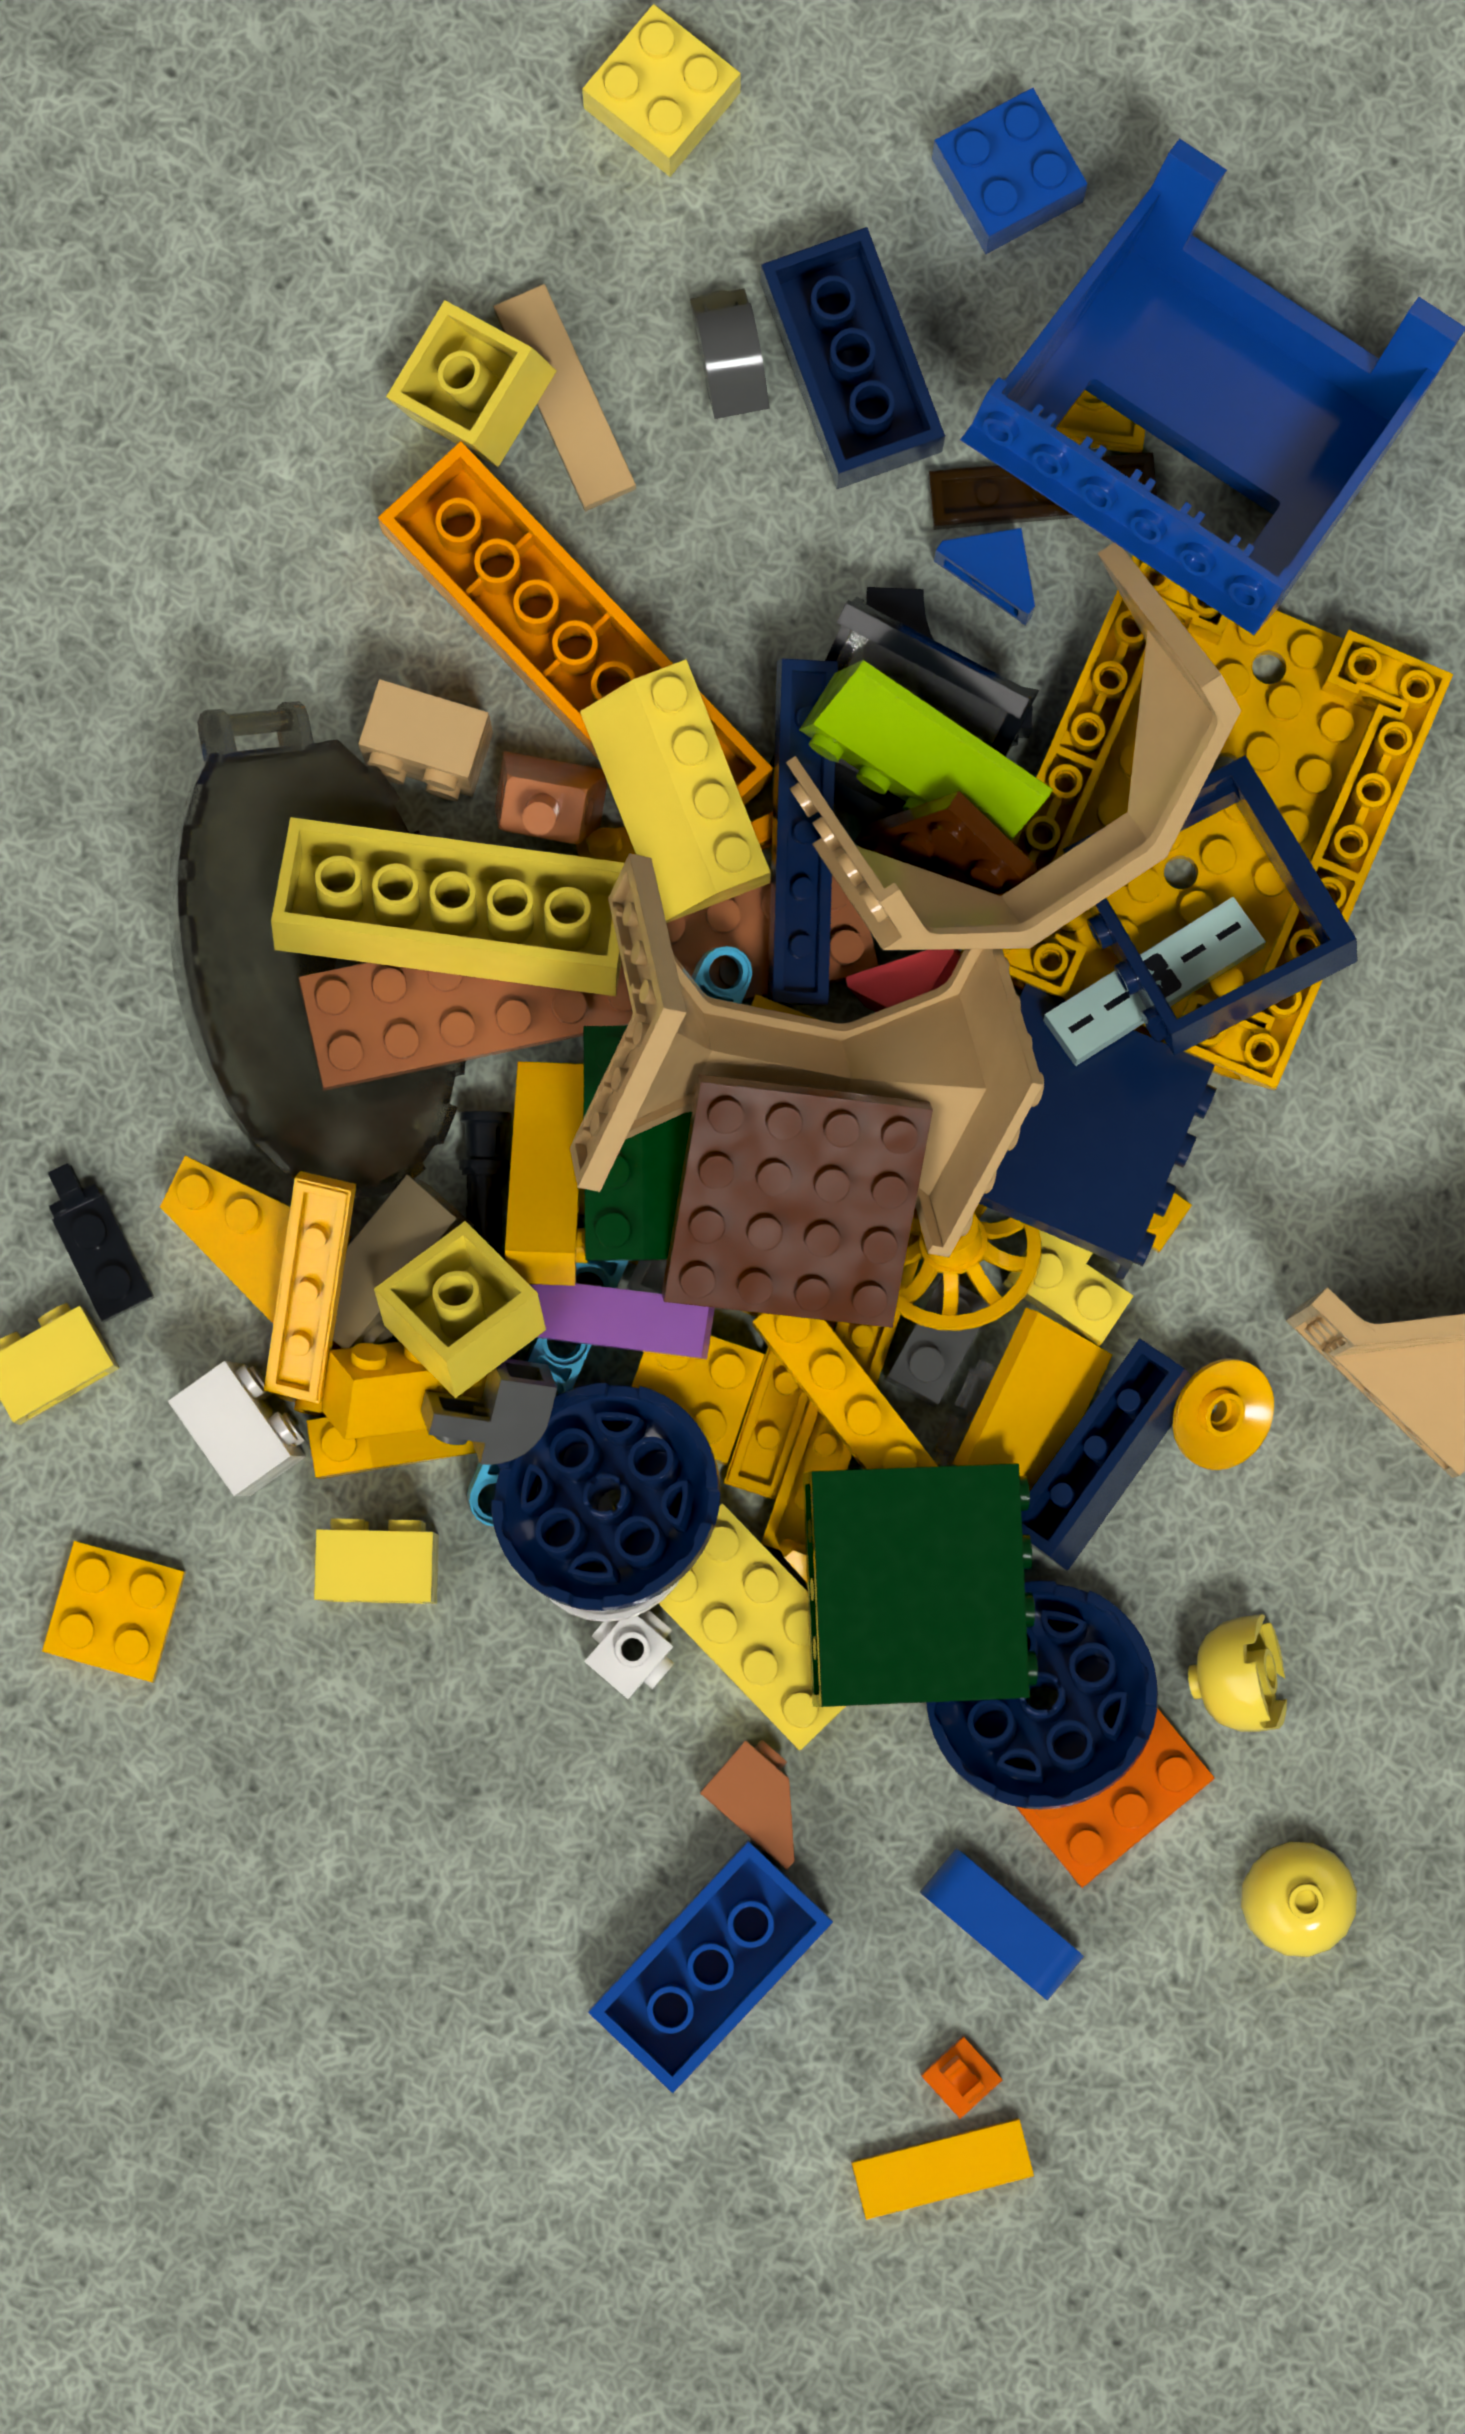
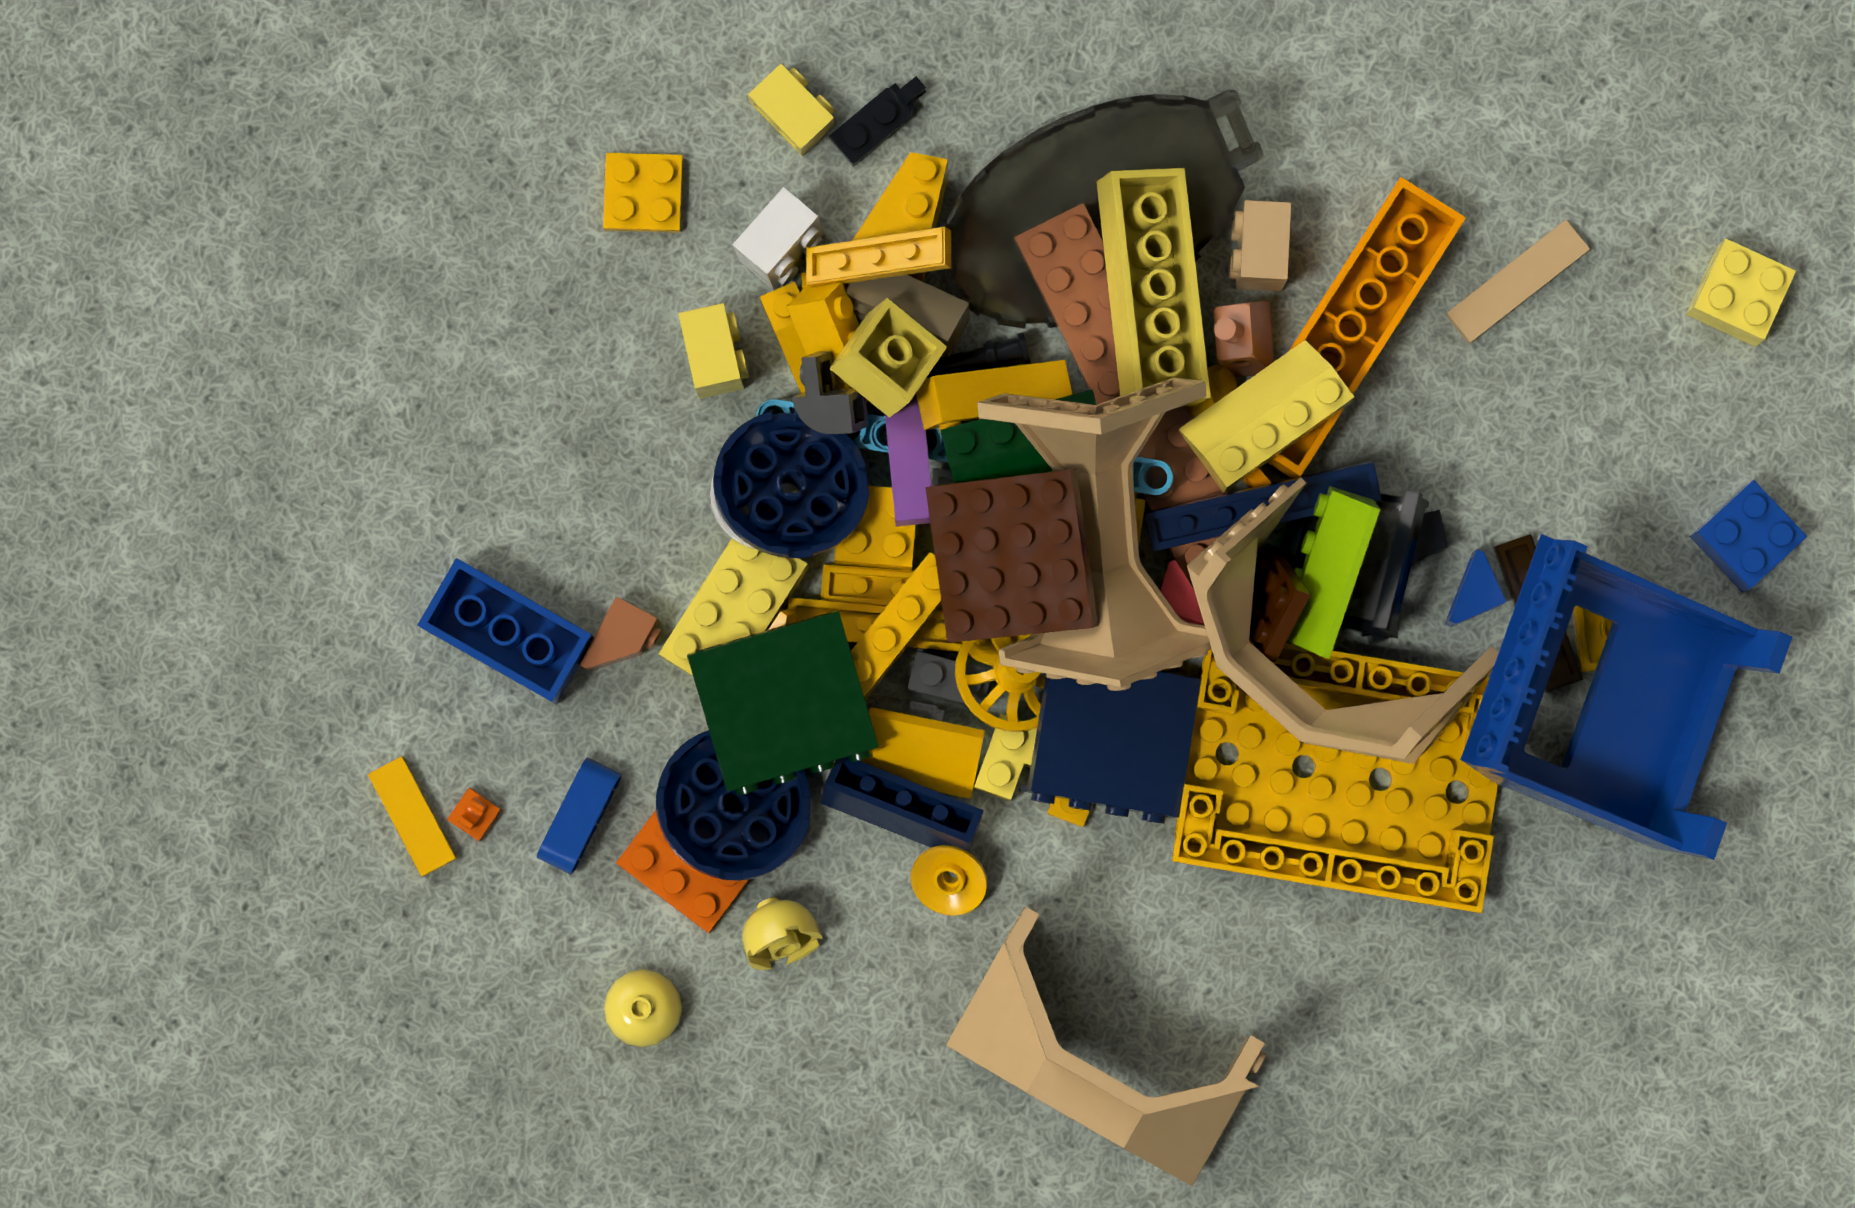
camera: 80 degrees right, 0 degrees up
(471, 383) = (1507, 216): light yellow brick -> none
(625, 1674) = (682, 527): white brick -> none
(730, 353) = (1575, 381): dark grey brick -> none
(852, 358) = (1592, 462): dark blue brick -> none
(1178, 967) = (1223, 763): light aqua tile -> none
(1338, 948) = (1352, 764): dark blue window -> none

